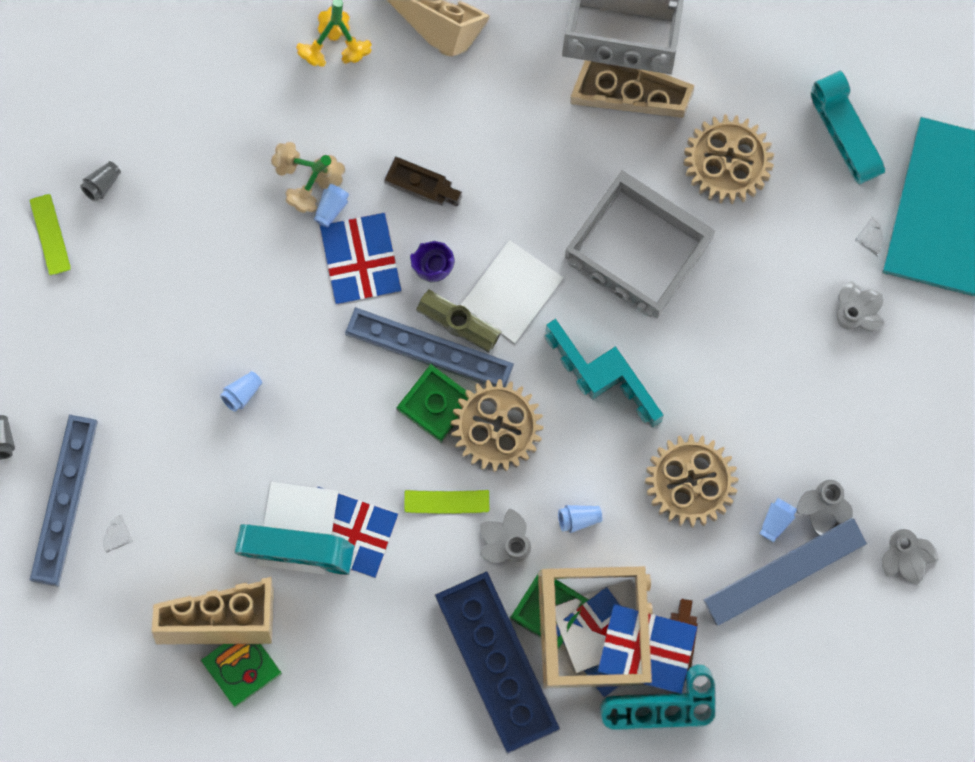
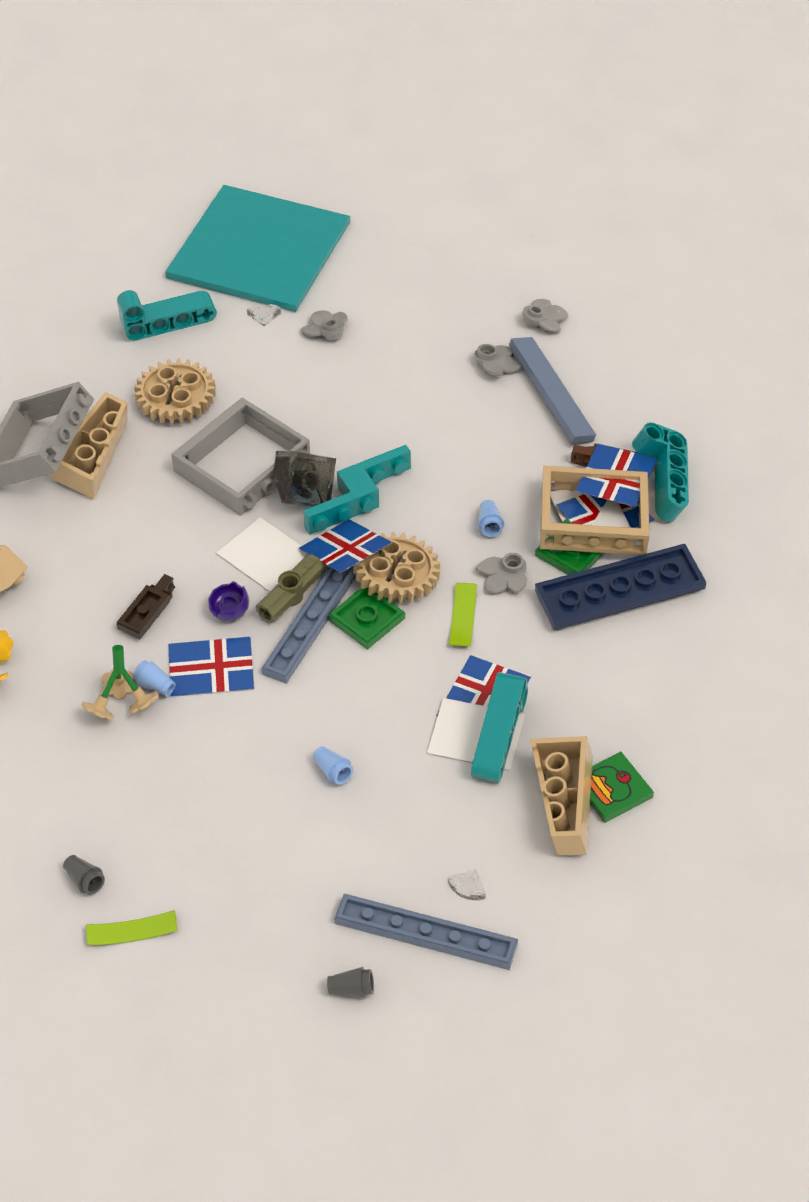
camera: 80 degrees left, 25 degrees down
(517, 368) = (345, 545): none -> sticker
(602, 313) = (303, 478): none -> clear smoke slope
(699, 504) = (447, 443): tan gear -> none
(777, 519) = (505, 388): light blue cone -> none

